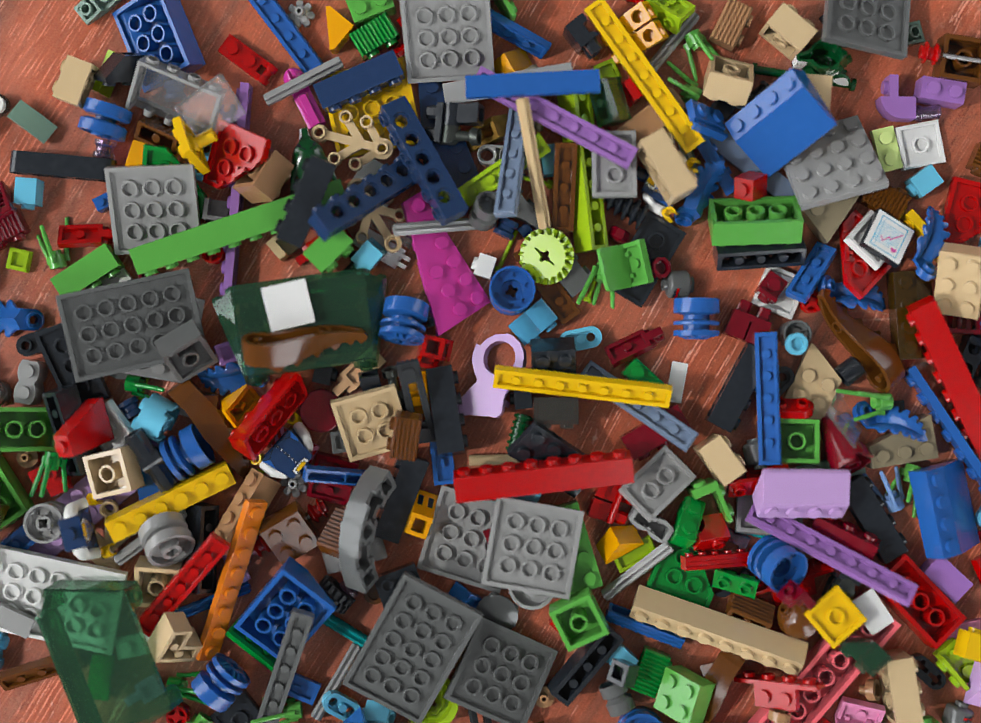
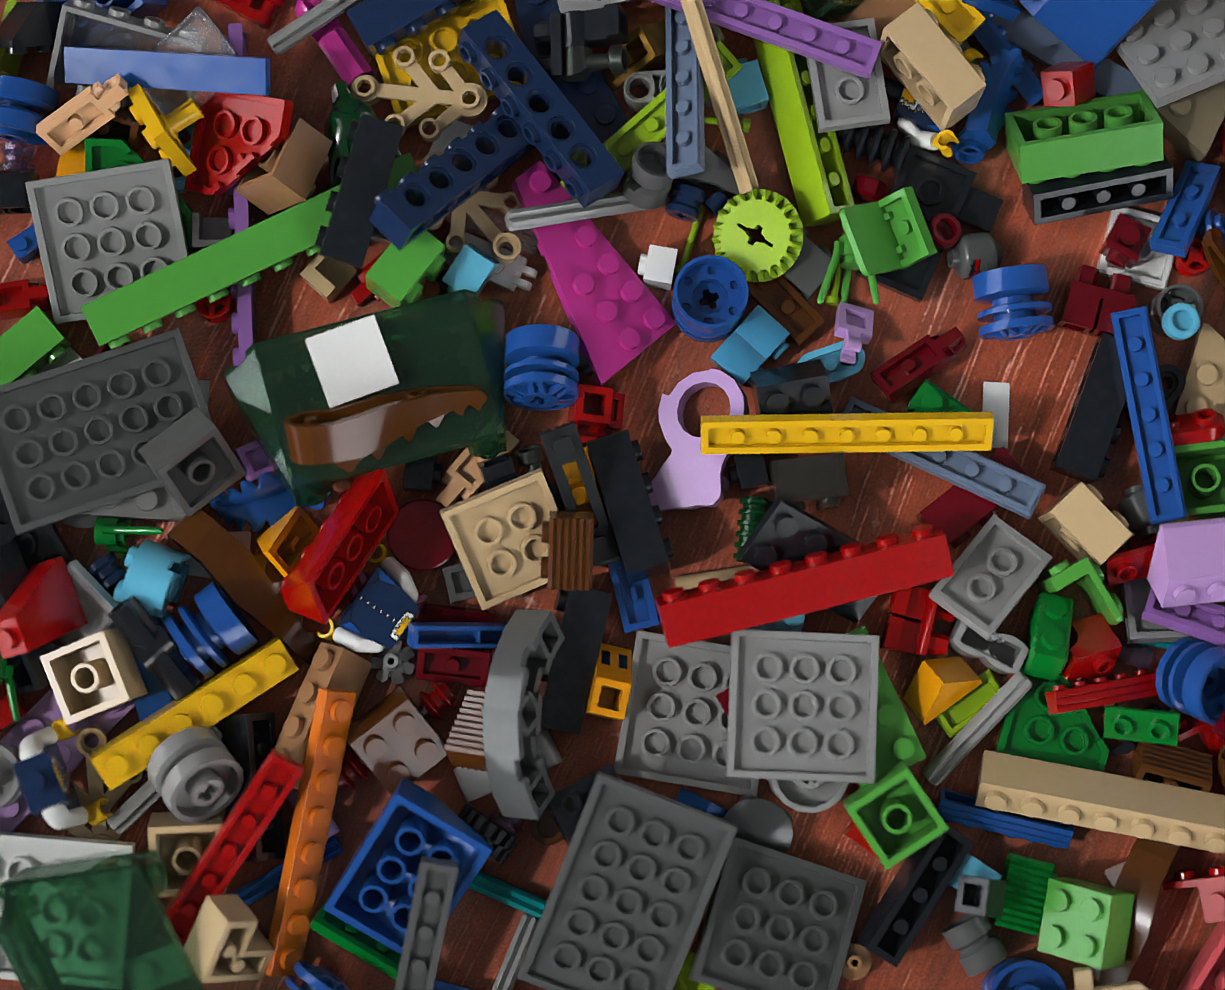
camera: 15 degrees left, 5 degrees down
(144, 130) = (83, 114): none -> light nougat hinge
(198, 109) = (169, 69): none -> tile
(564, 186) = (771, 120): reddish brown plate -> none
(598, 318) = (855, 326): none -> lavender plate
(685, 256) = (980, 210): none -> black tile

